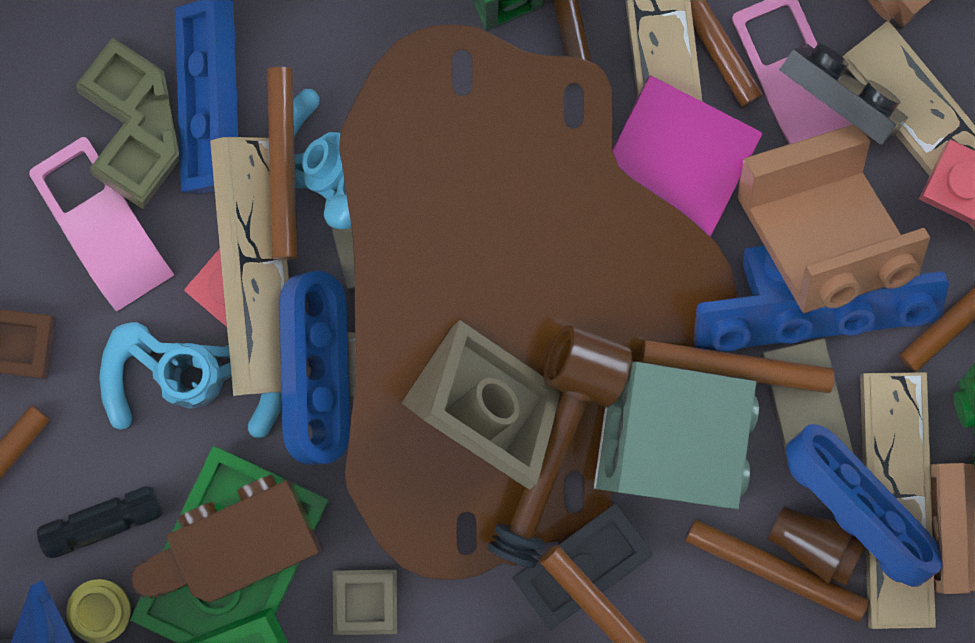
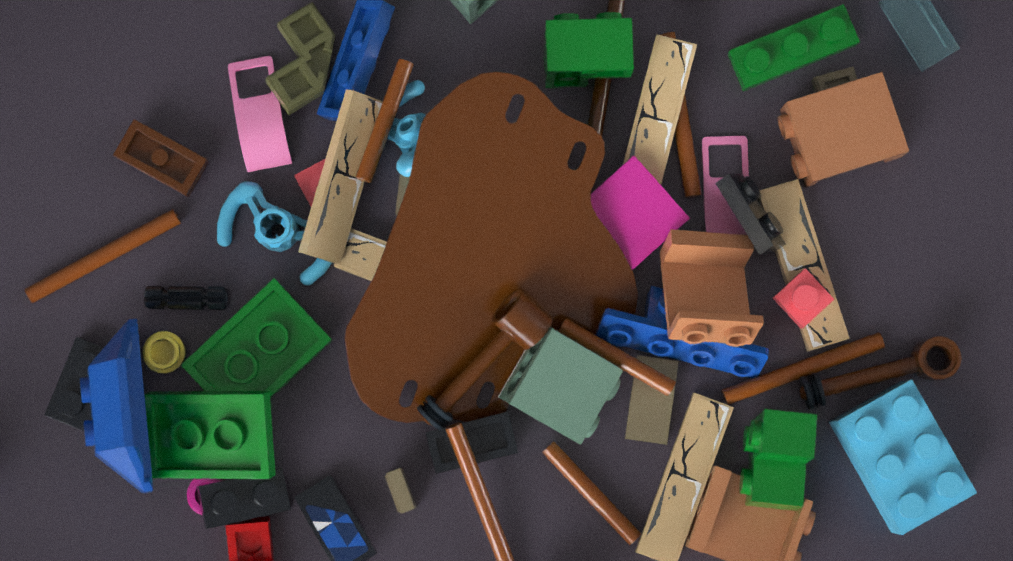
camera: 20 degrees right, 0 degrees up
(233, 546) = (261, 344): reddish brown hinge -> none
(323, 342) = (366, 239): blue plate -> none
(365, 602) = (329, 411): dark tan tile -> none
(487, 403) = (450, 317): dark tan slope -> none
(818, 544) = (624, 487): reddish brown cone -> none
(863, 506) = (659, 473): blue plate -> none

